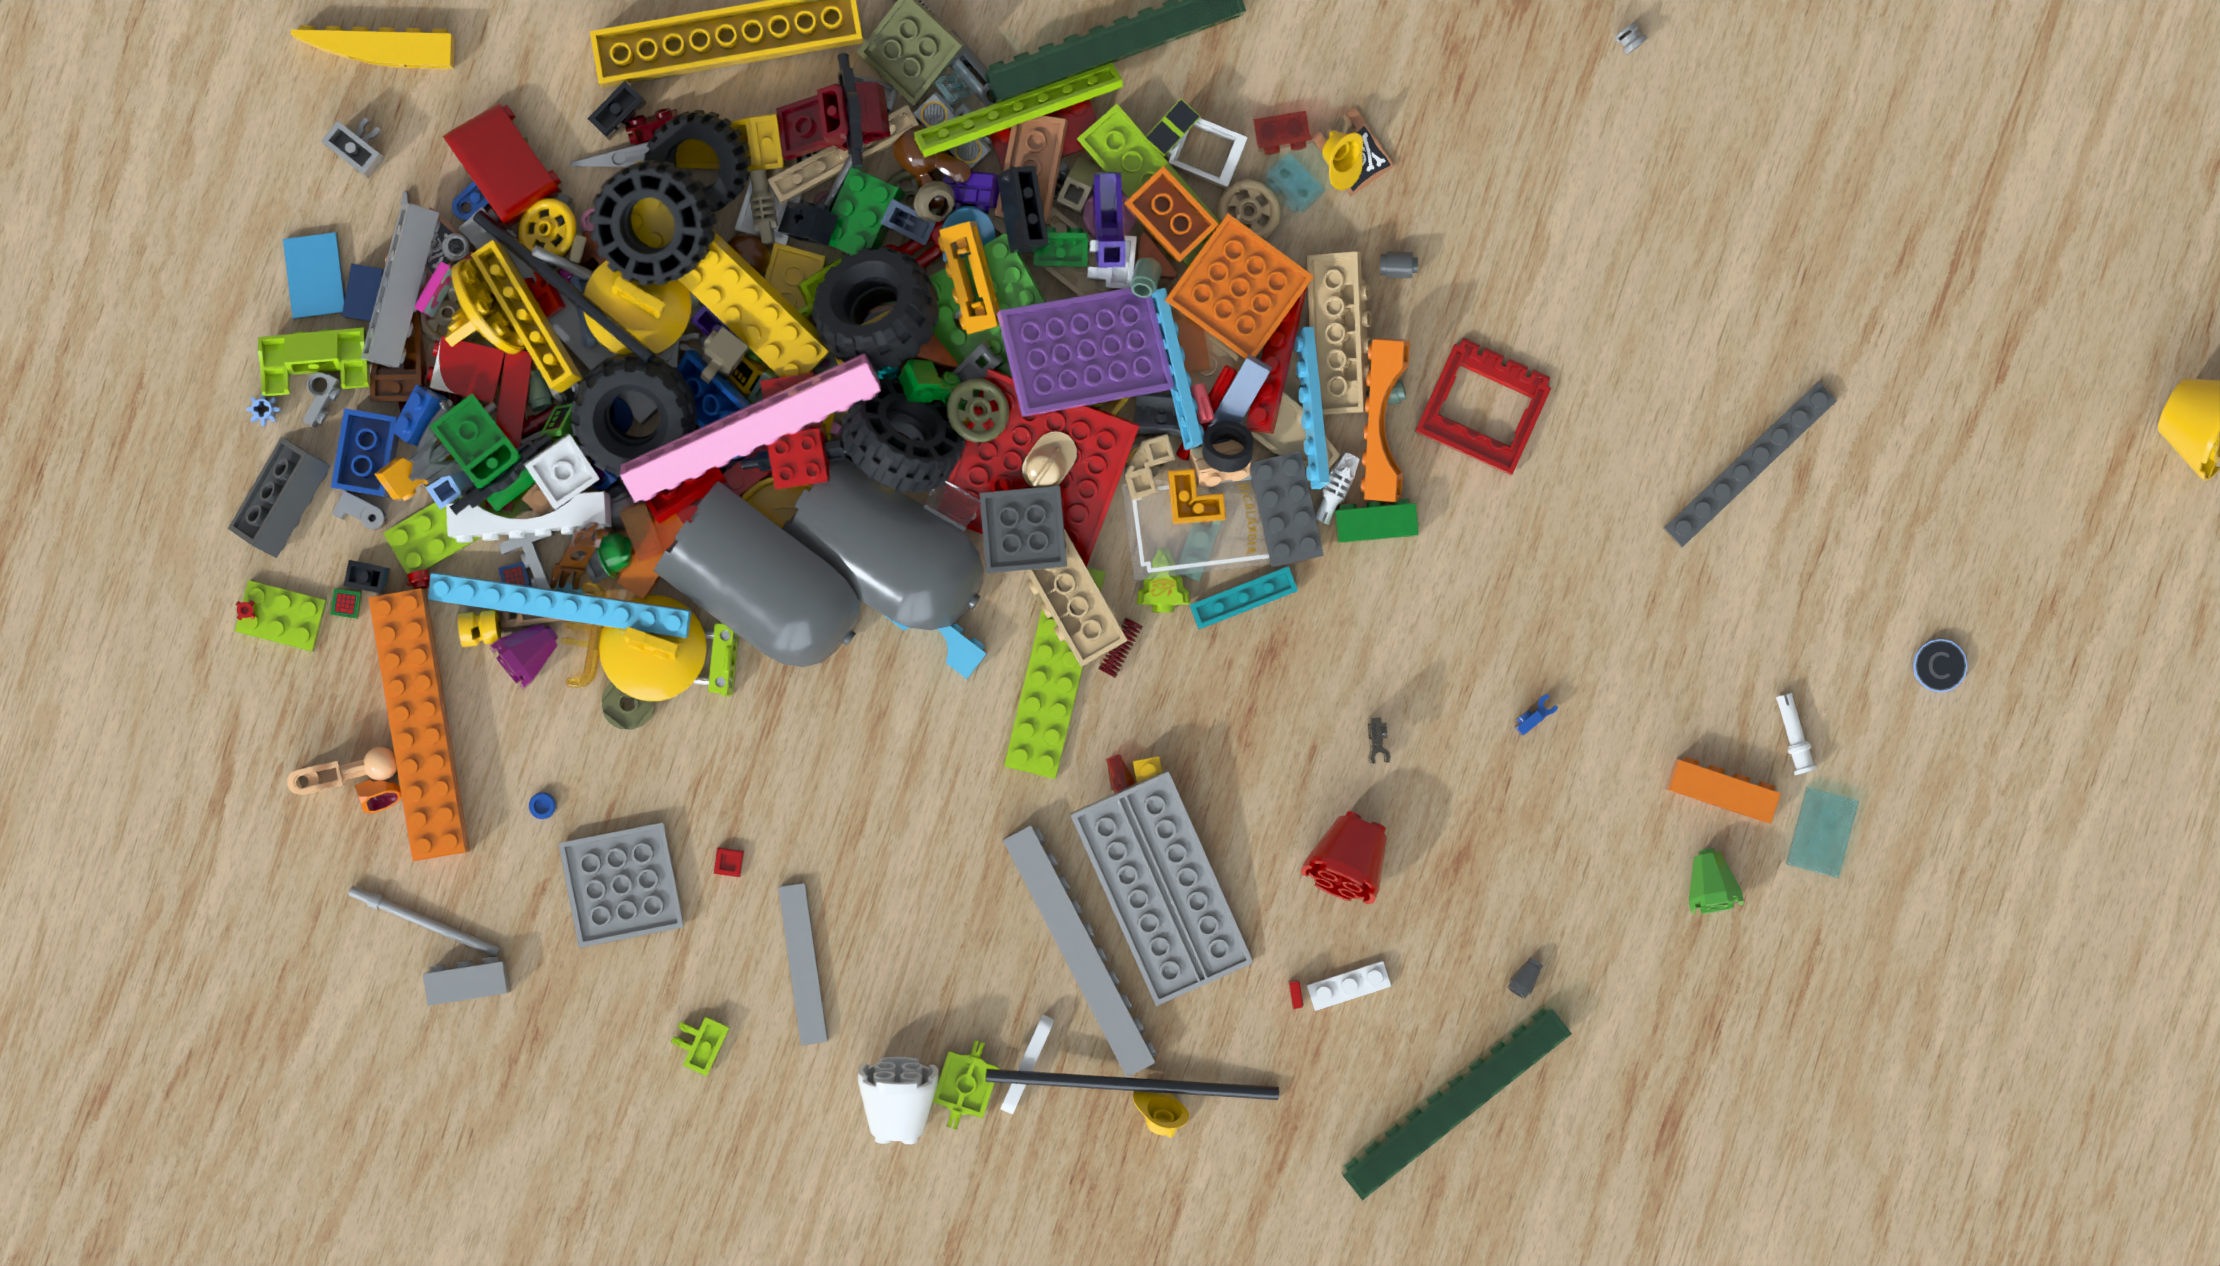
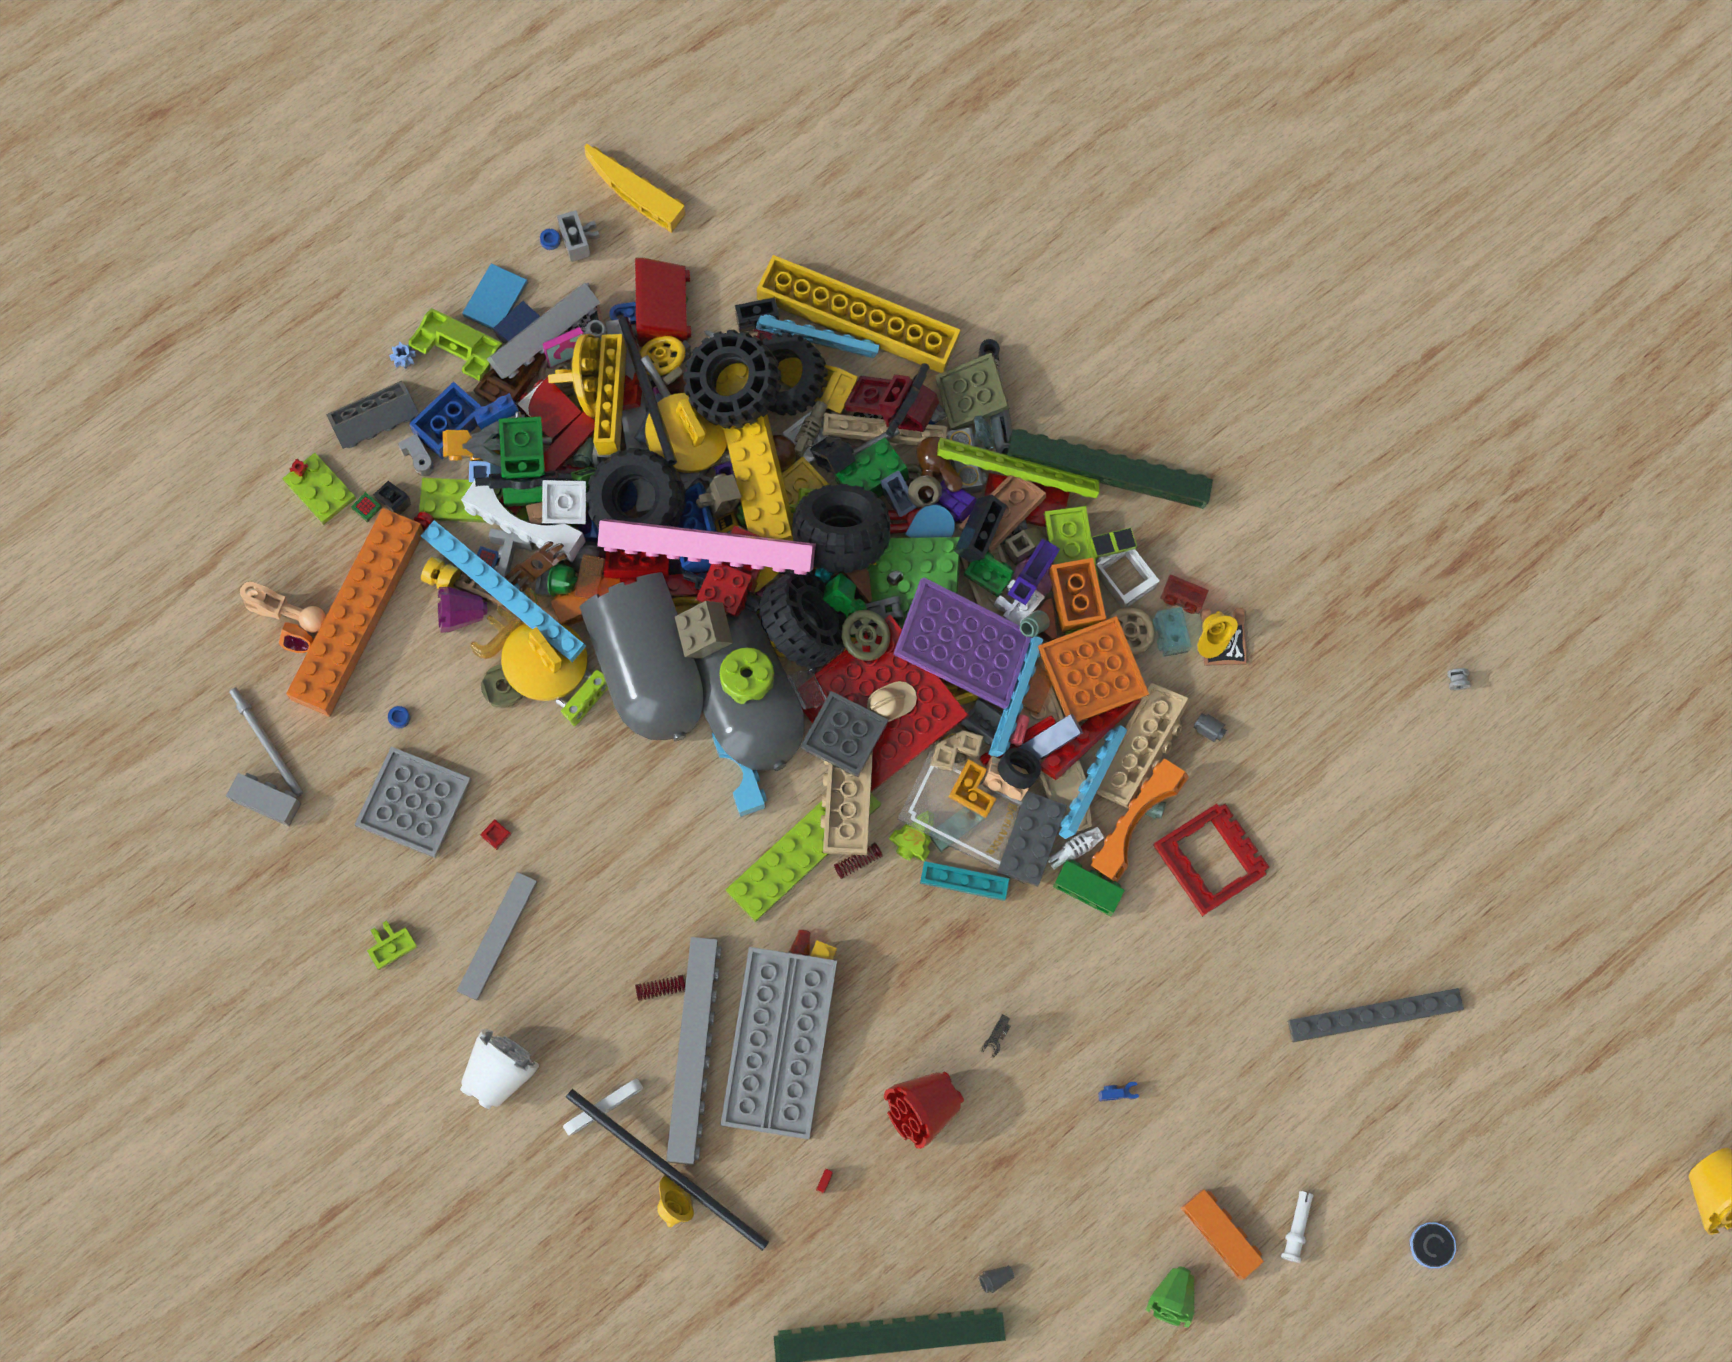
camera: 30 degrees right, 15 degrees down
(317, 411) = (442, 373): light grey plate -> none
(326, 166) = (550, 239): none -> blue tile
(690, 97) = (825, 338): none -> medium azure plate
(806, 518) = (703, 629): none -> dark tan brick
(896, 551) = (748, 688): none -> lime plate
(963, 1085) = (547, 1093): lime plate -> none
(969, 240) = (930, 522): light orange brick -> none
(988, 928) = (639, 991): none -> dark red piece
(1348, 985) = (866, 1200): white plate -> none
(1822, 832) = (1276, 1313): clear light blue tile -> none

